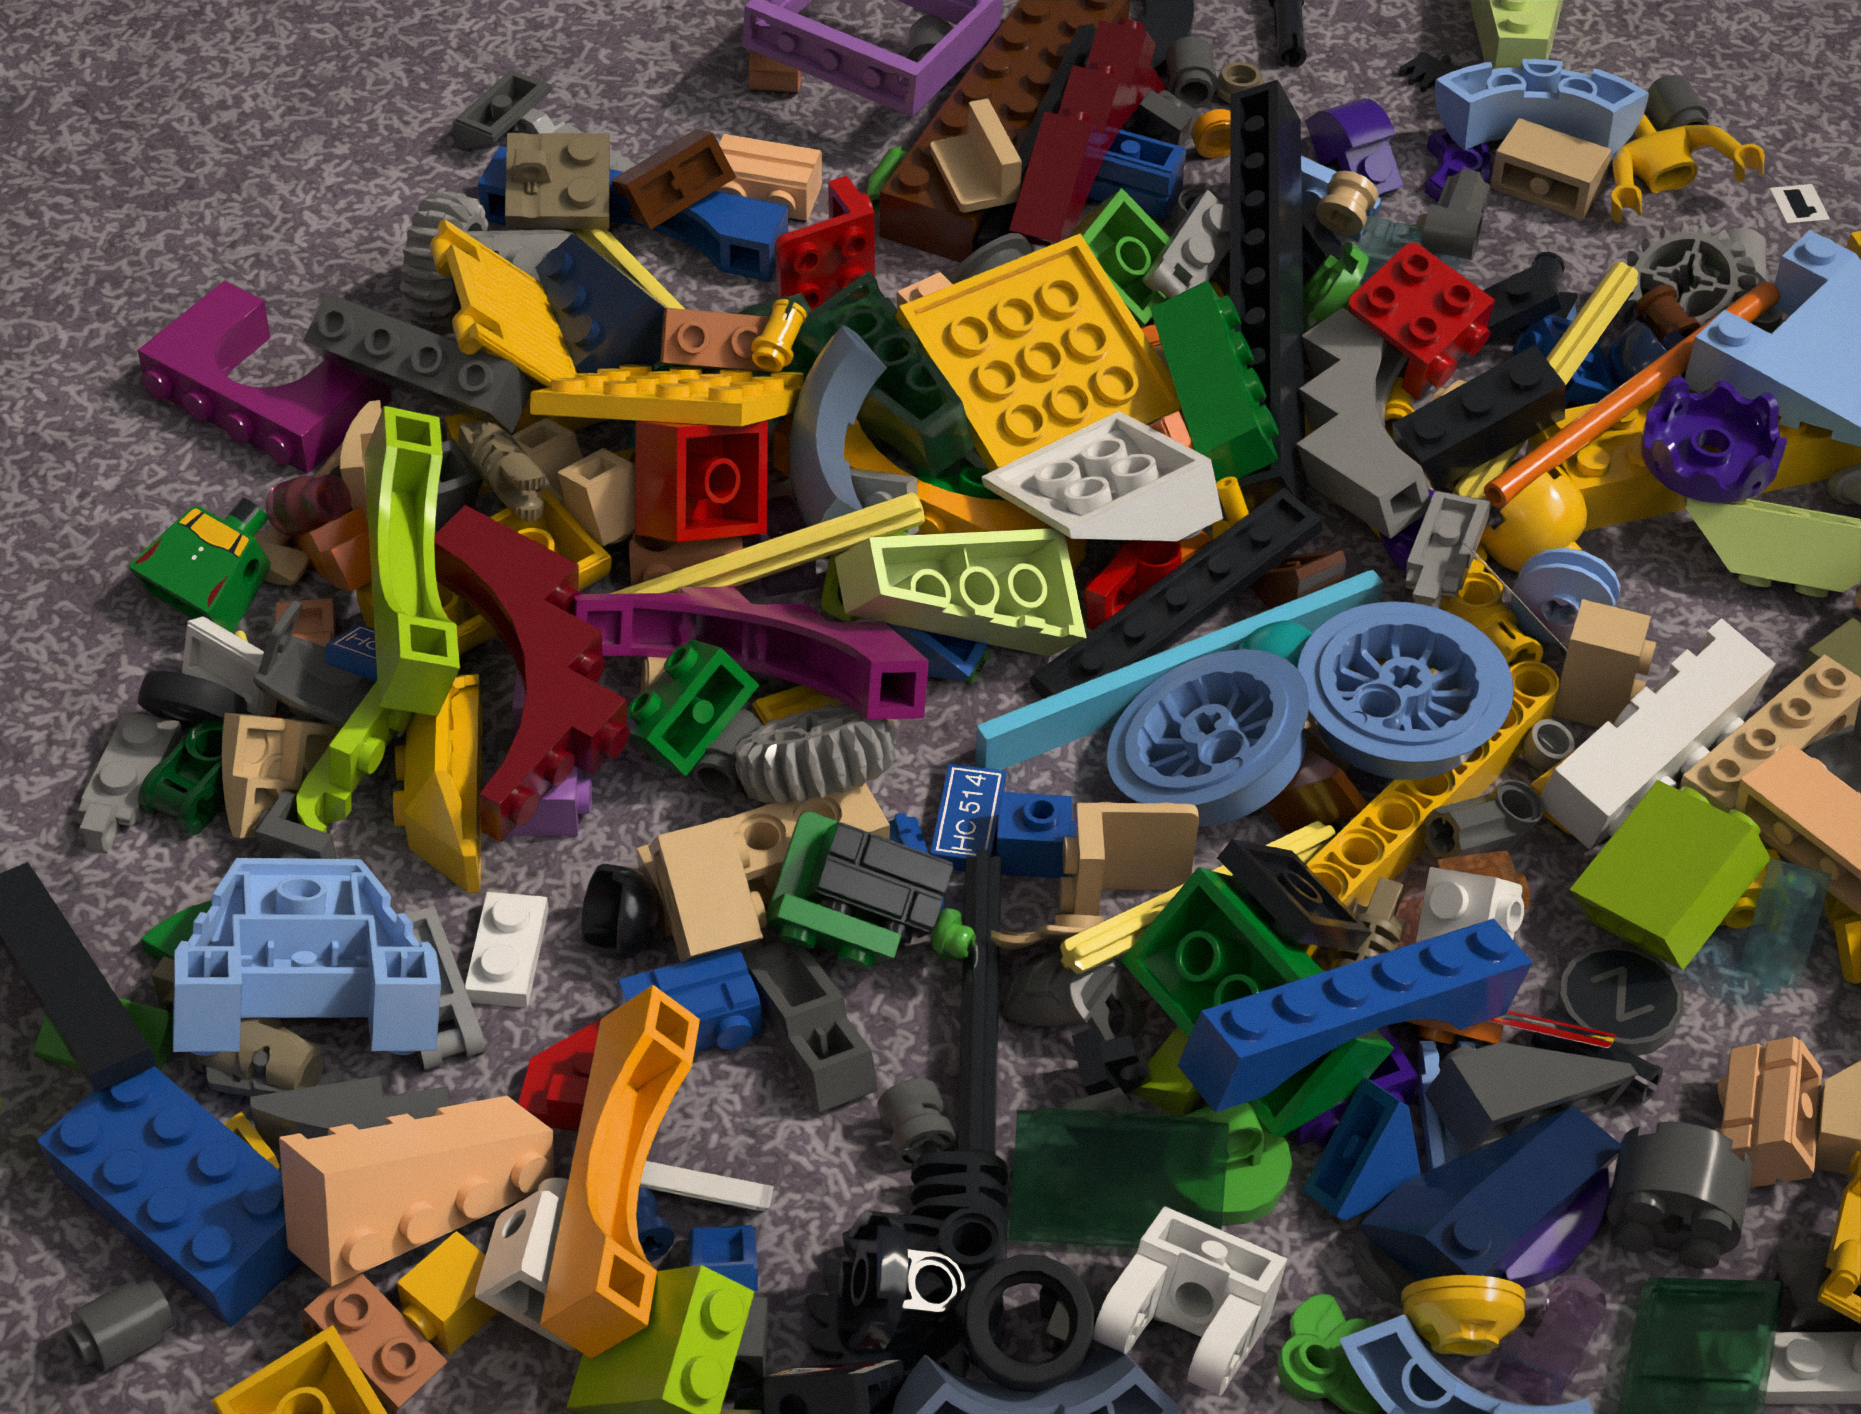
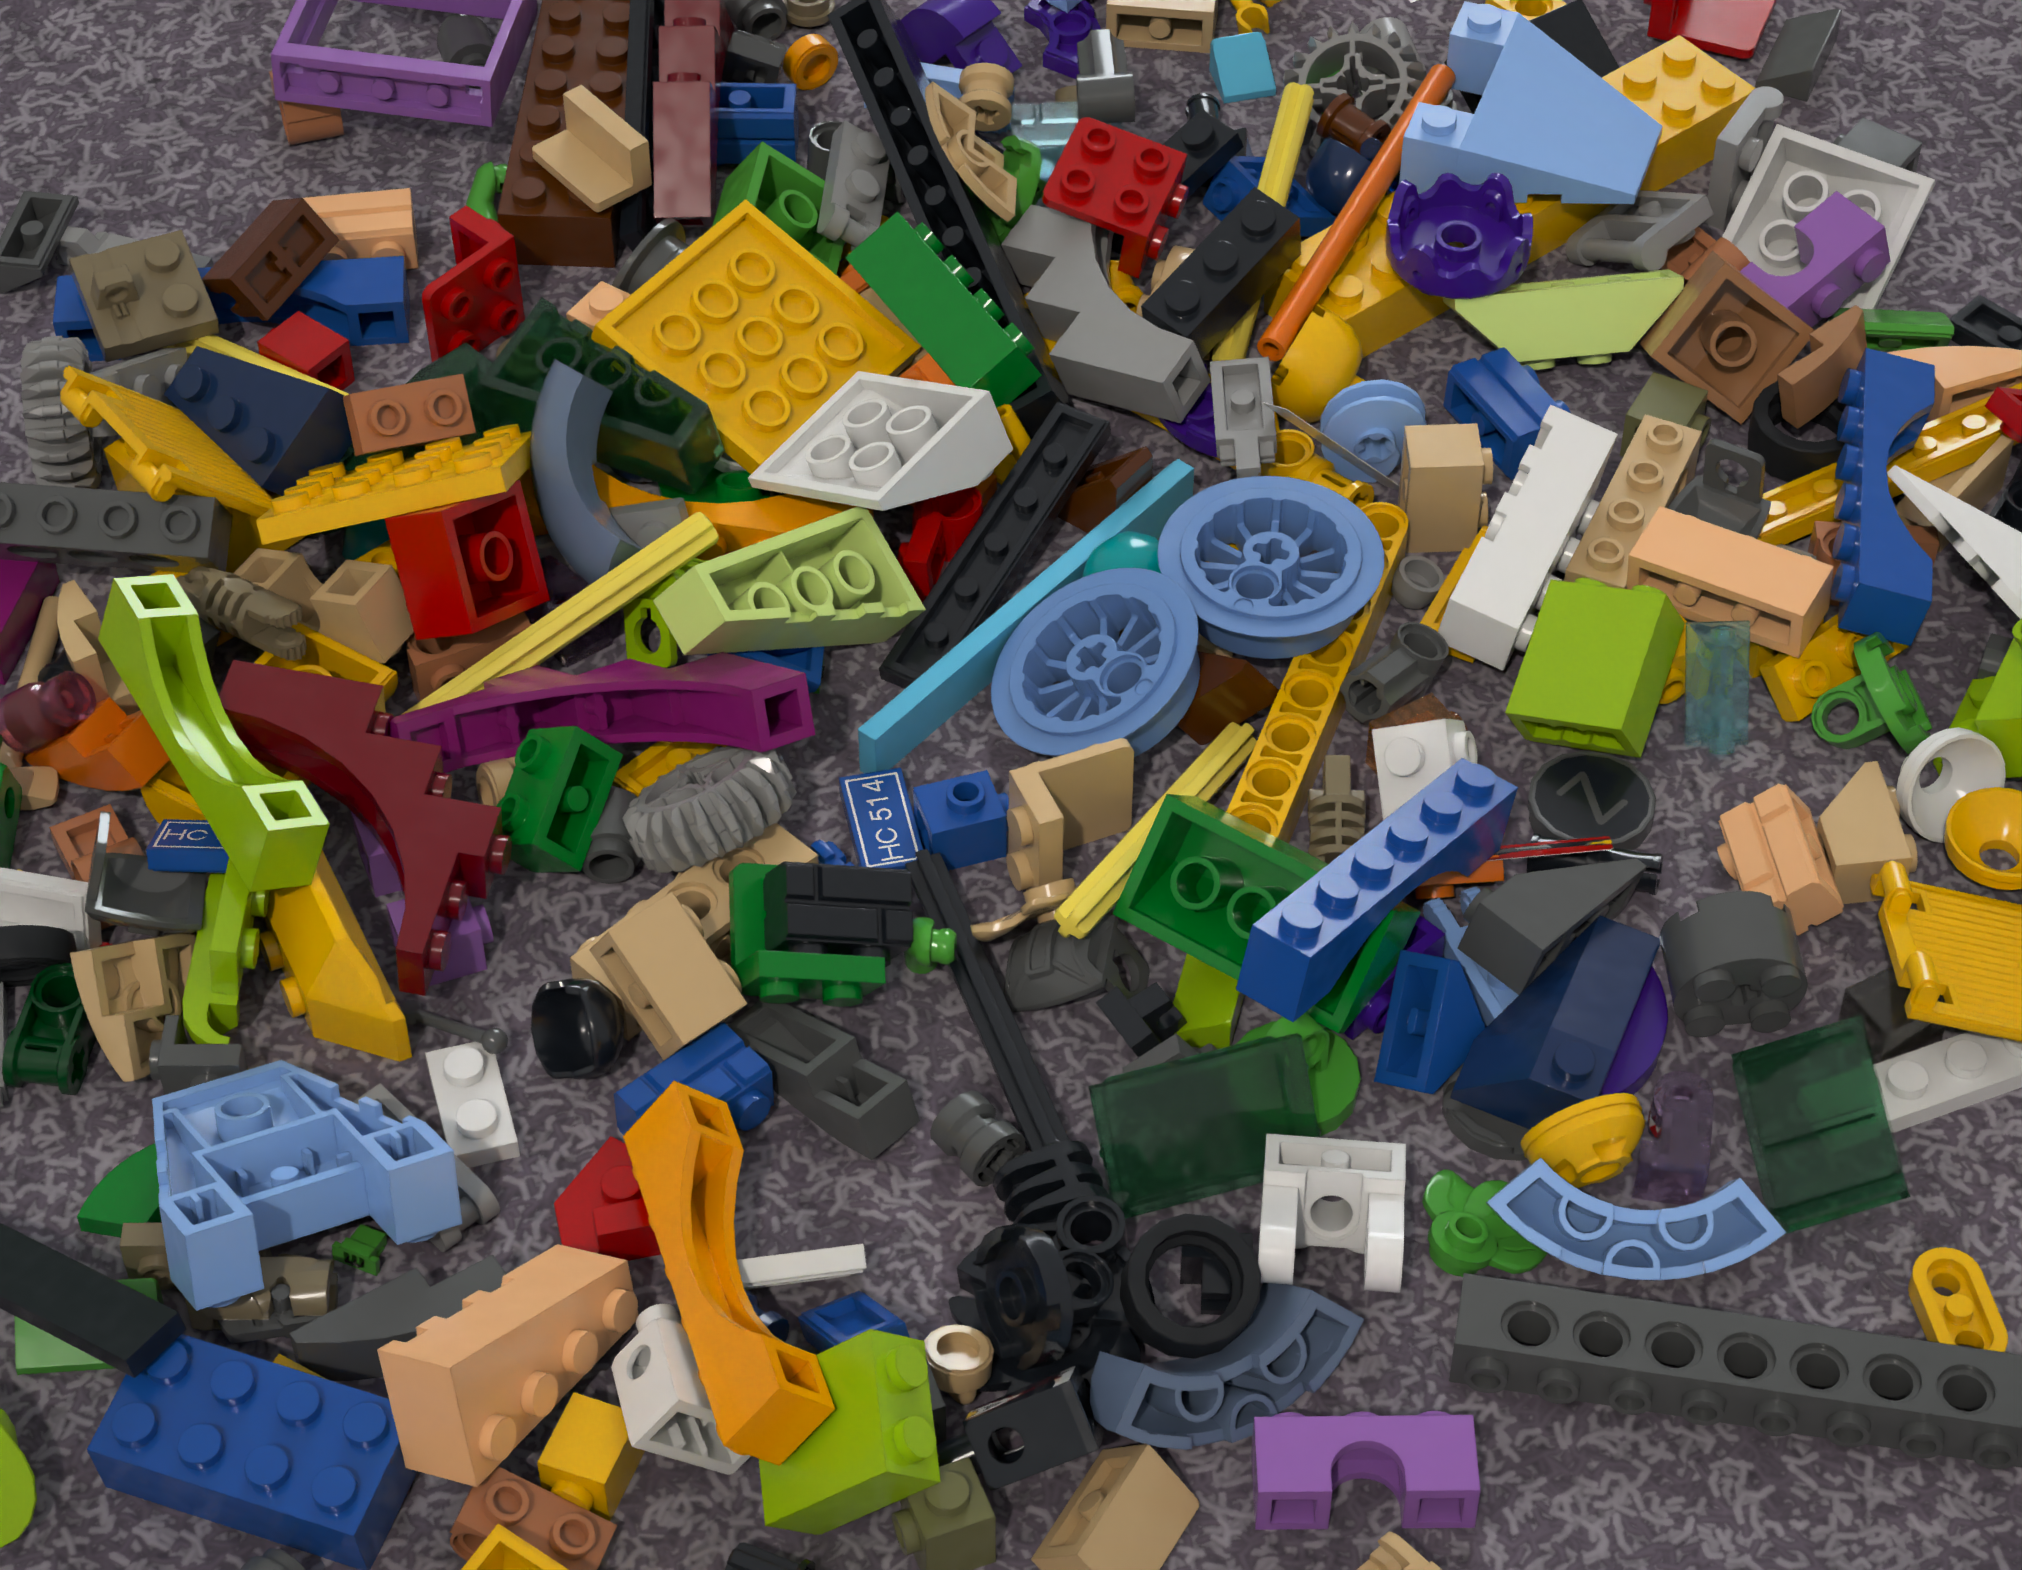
camera: 20 degrees left, 0 degrees up
(354, 1045) = (361, 1249): none -> bright green piece
(496, 853) = (492, 1040): none -> dark grey hinge
(676, 267) = (310, 349): none -> red brick
(774, 346) = (477, 400): yellow pin -> none
(802, 1318) = (959, 1360): none -> tan tile
(1294, 895) = (1274, 804): black plate -> none
(1299, 250) = (971, 157): none -> tan brick
(1600, 238) = (1241, 67): none -> medium azure slope
(1694, 597) = (1502, 401): none -> blue brick

